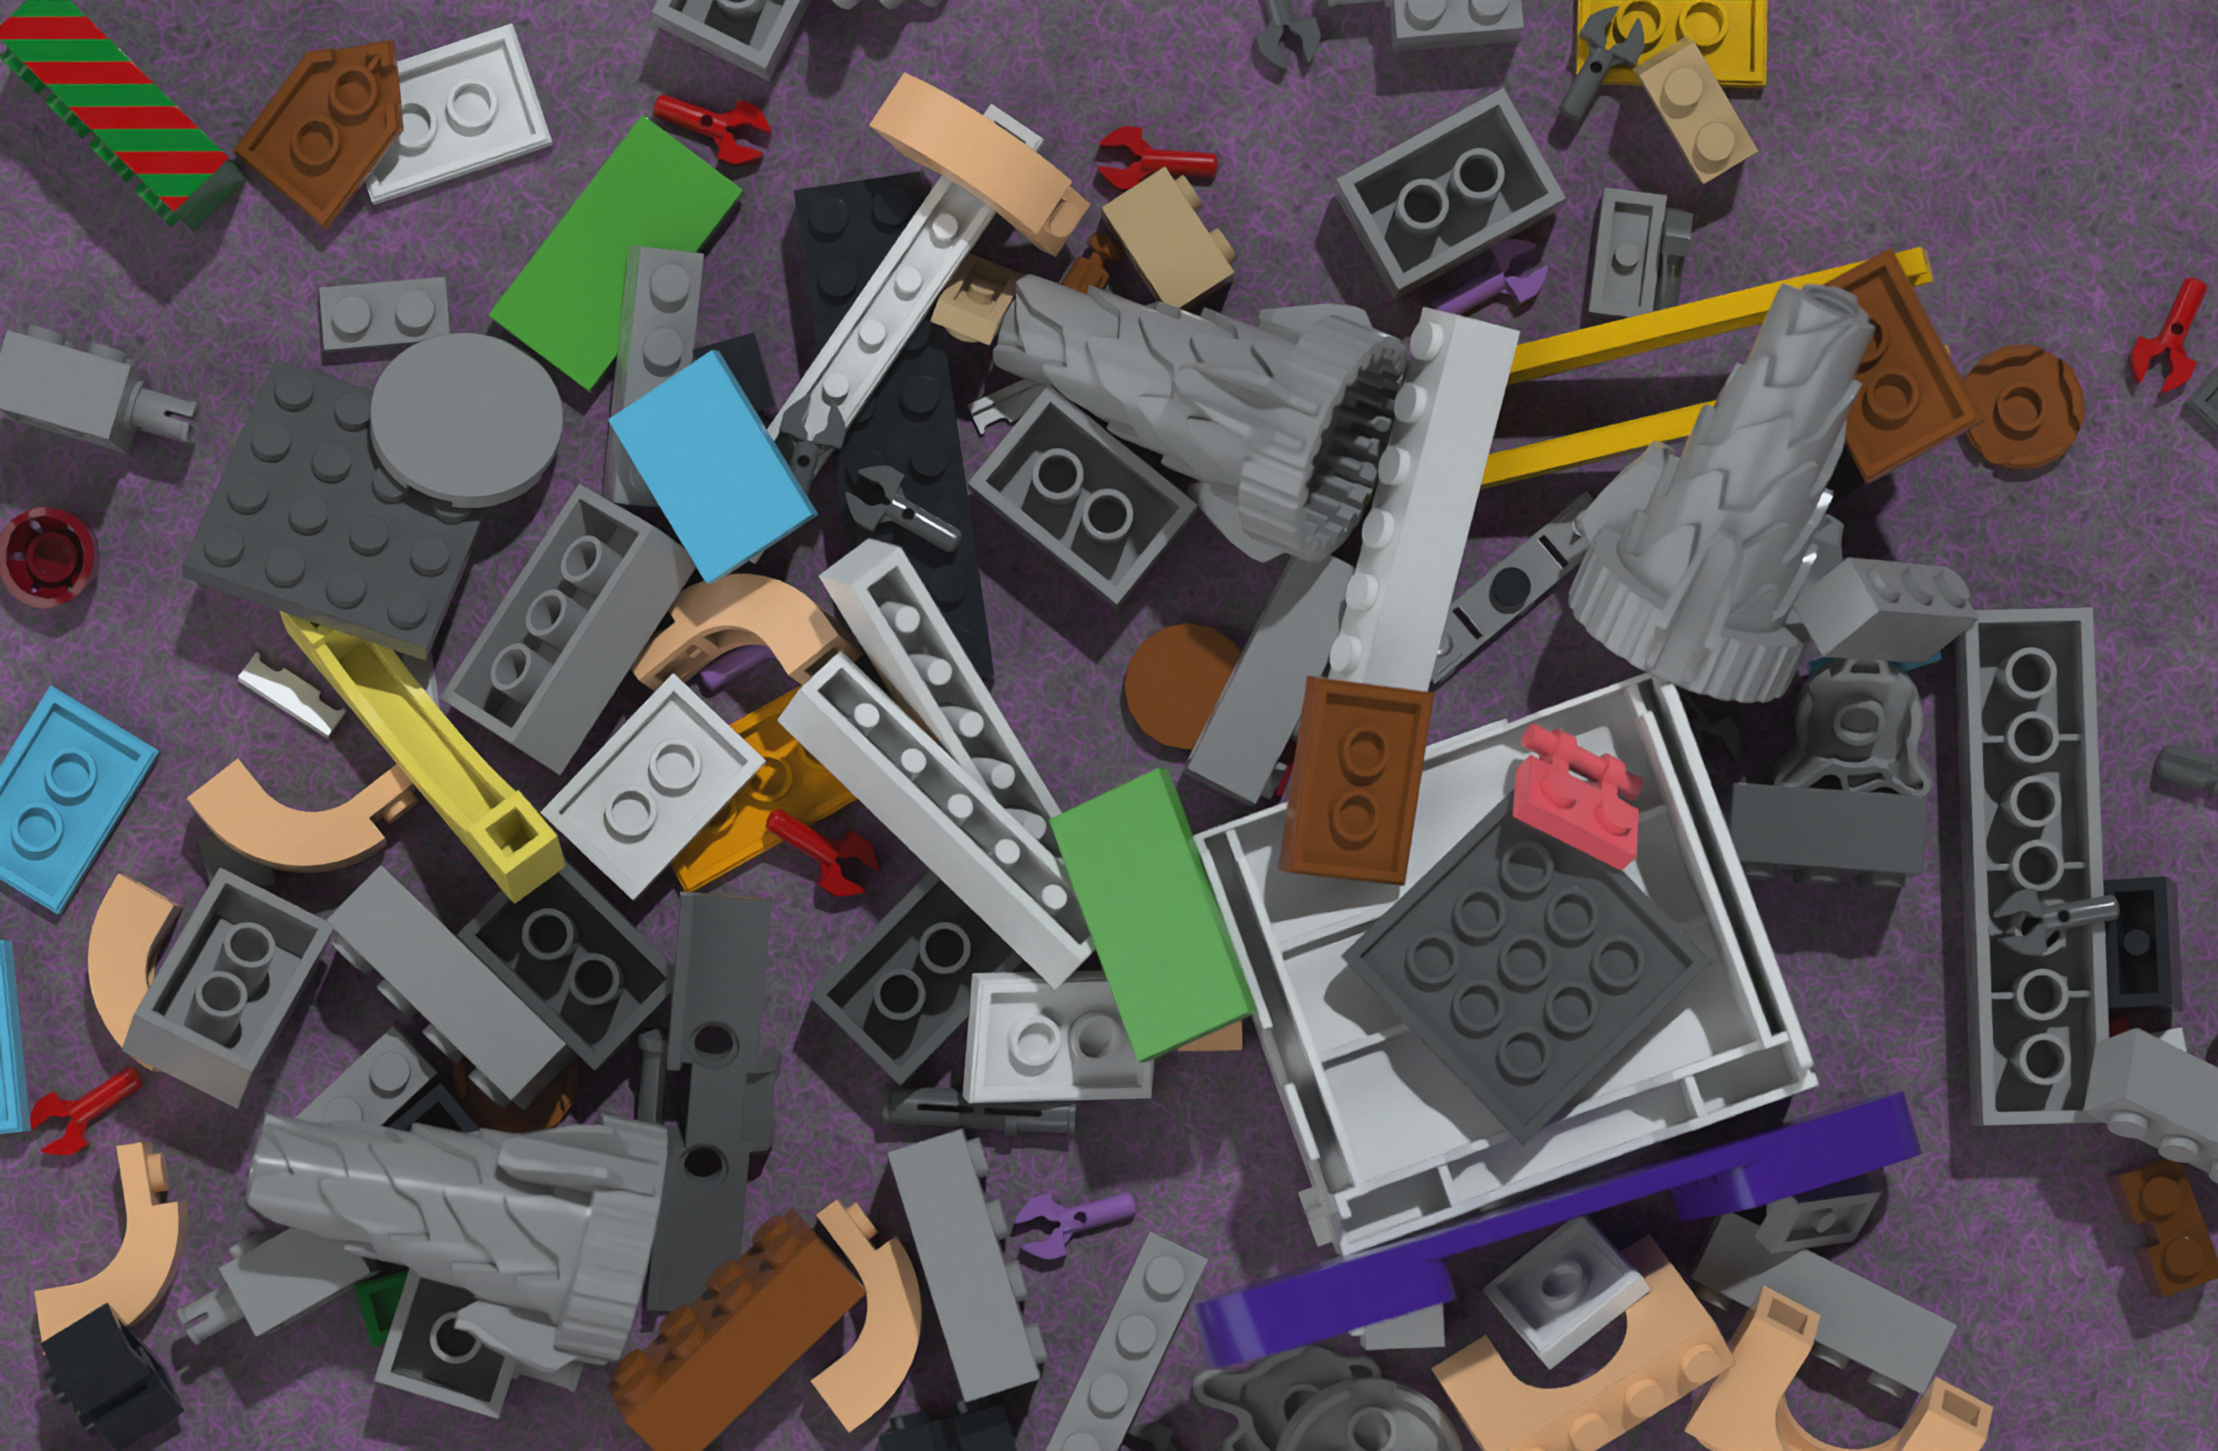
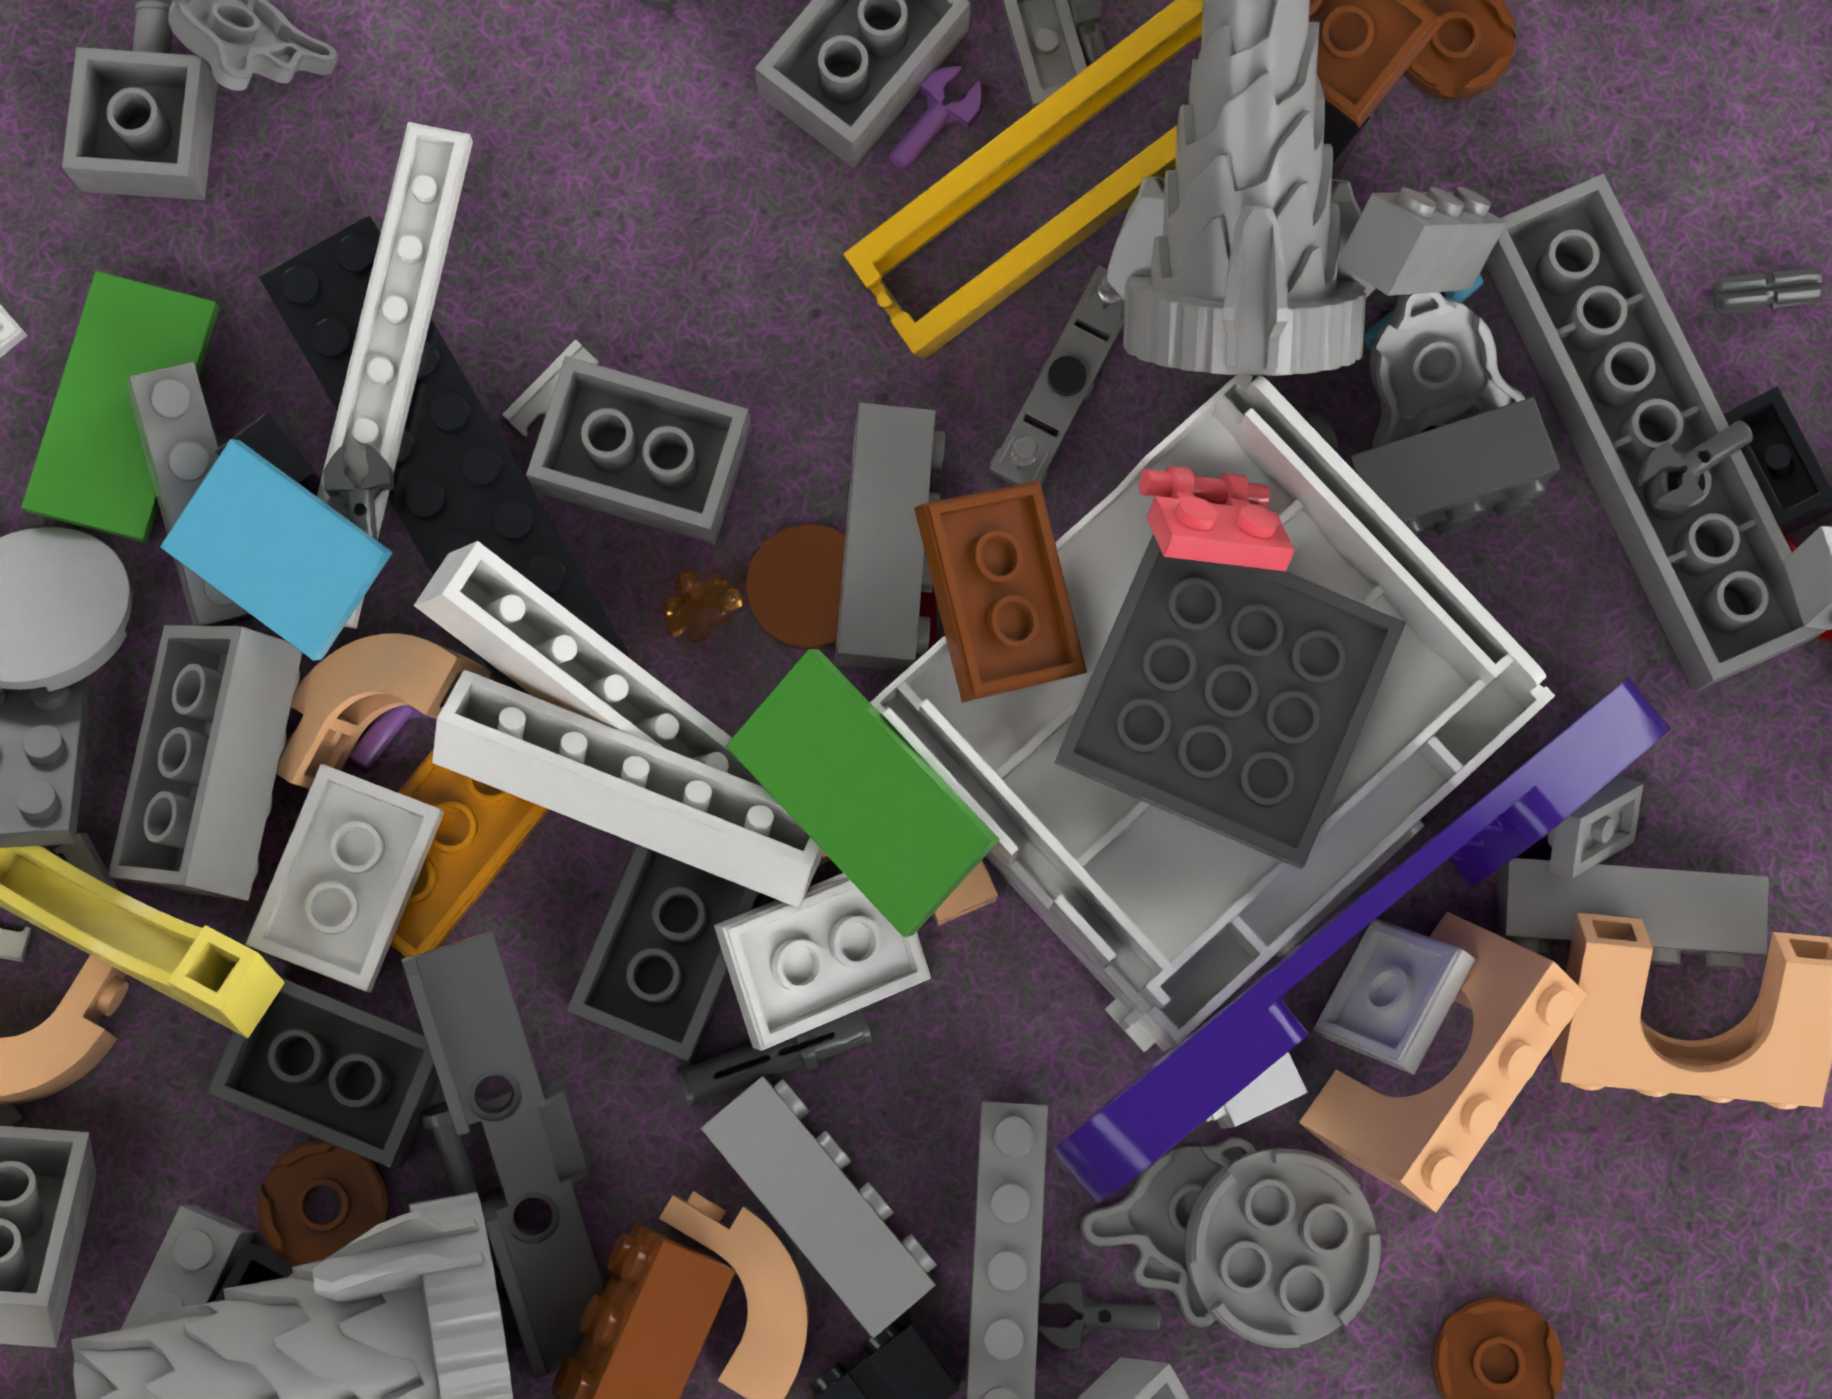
camera: 20 degrees left, 5 degrees down
(442, 979) = (215, 1143): light grey brick -> none
(716, 126) = (172, 258): red bar -> none
(824, 851) = (531, 873): red bar -> none
(900, 510) = (470, 522): dark grey bar -> none
(976, 300) = (469, 311): tan plate -> none
(982, 160) = (420, 167): light nougat arch -> none
(1073, 1219) = (904, 1123): medium lavender bar -> none
(1079, 664) = (700, 605): none -> clear orange plant
(1090, 271) = (565, 255): dark orange piece -> none
(1152, 160) = (580, 133): red bar -> none
(1168, 240) = (627, 194): tan brick -> none
(1265, 417) = (784, 297): light grey cone -> none
(1423, 501) = (954, 310): white brick -> none

